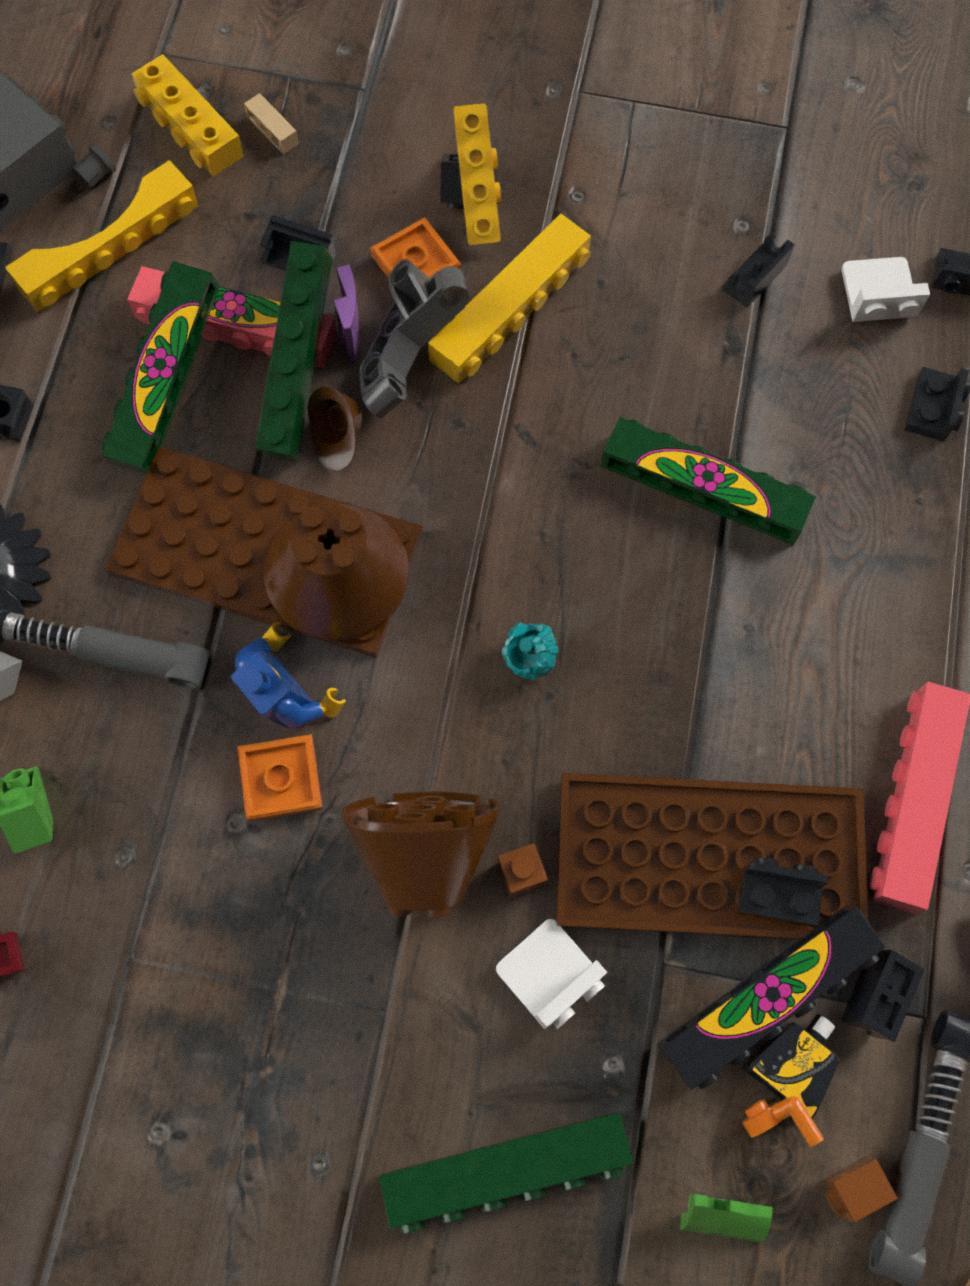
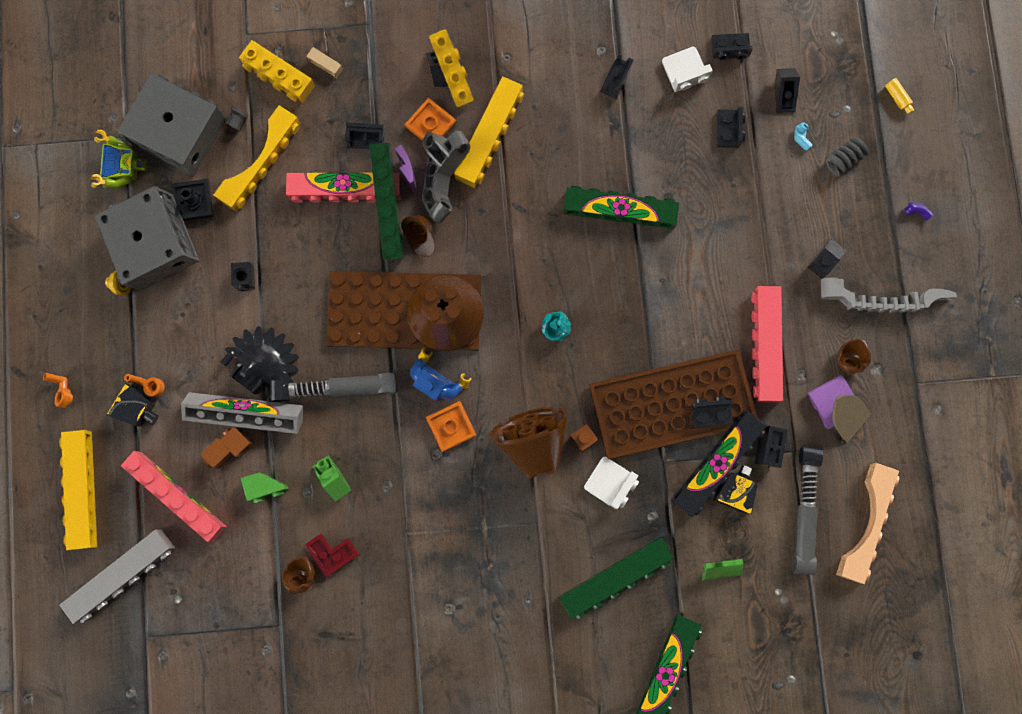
camera: 10 degrees left, 10 degrees up
(161, 367) = (318, 228): dark green brick -> none
(765, 1116) = (729, 519): orange plate -> none
(858, 1190) = (779, 539): dark orange brick -> none

